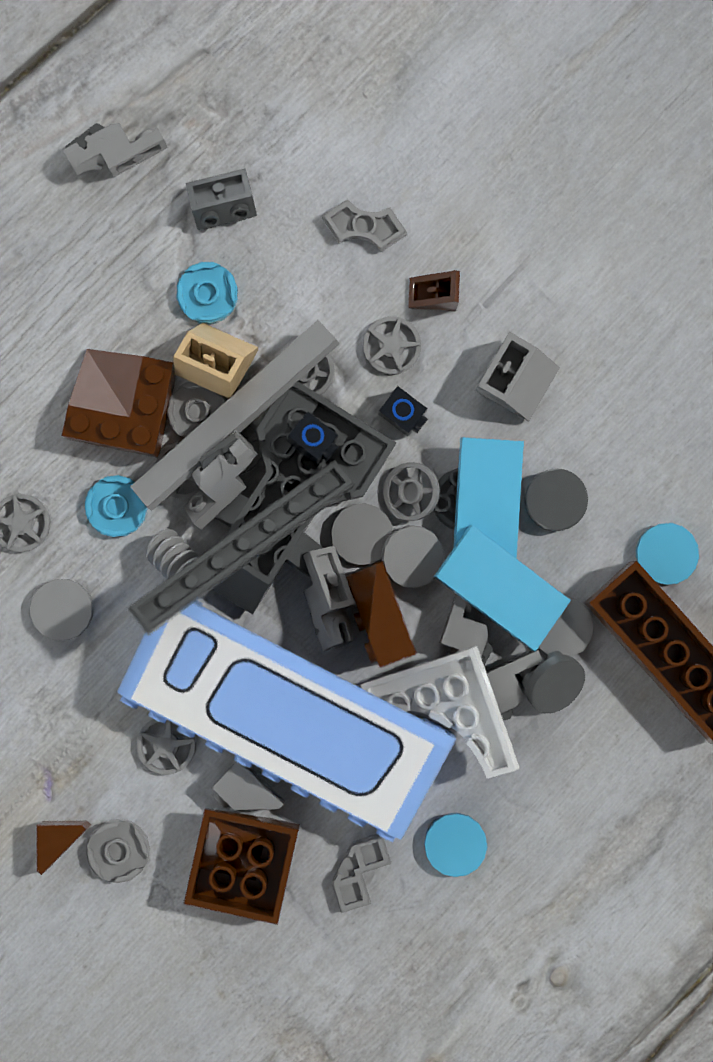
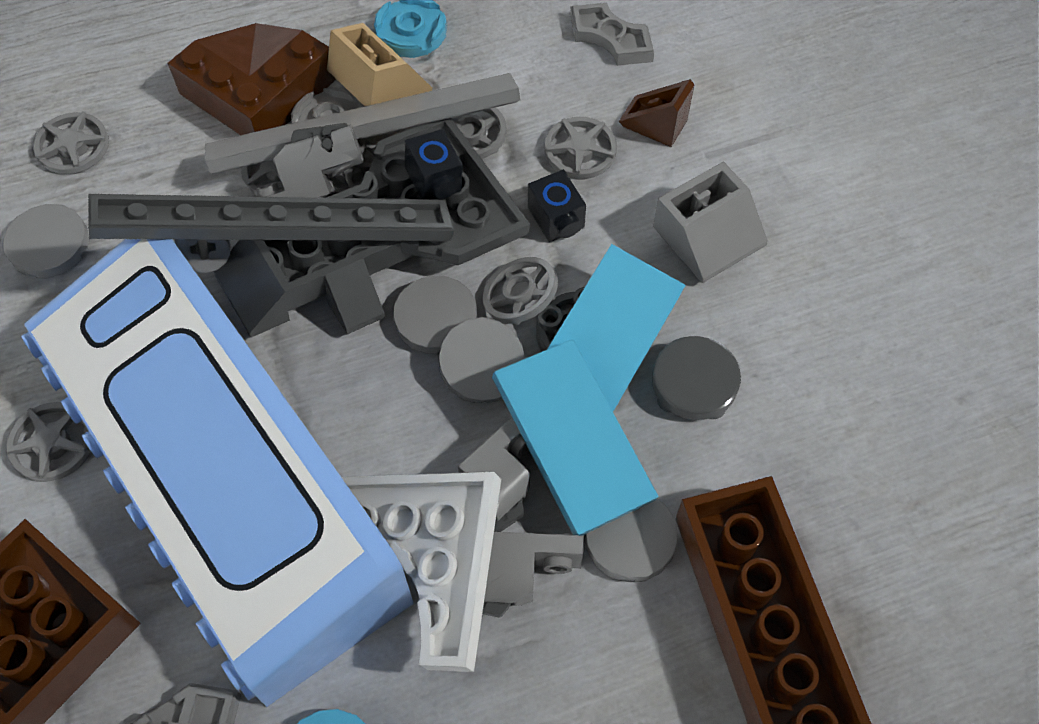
camera: 25 degrees right, 25 degrees down
(114, 507) = (178, 168): medium azure tile -> none
(245, 790) = (101, 534): light grey slope -> none
(328, 598) = (349, 354): light grey plate -> none
(380, 616) = (397, 395): reddish brown slope -> none
(554, 683) = (585, 593): dark grey tile -> none
(668, 553) = (822, 508): medium azure tile -> none

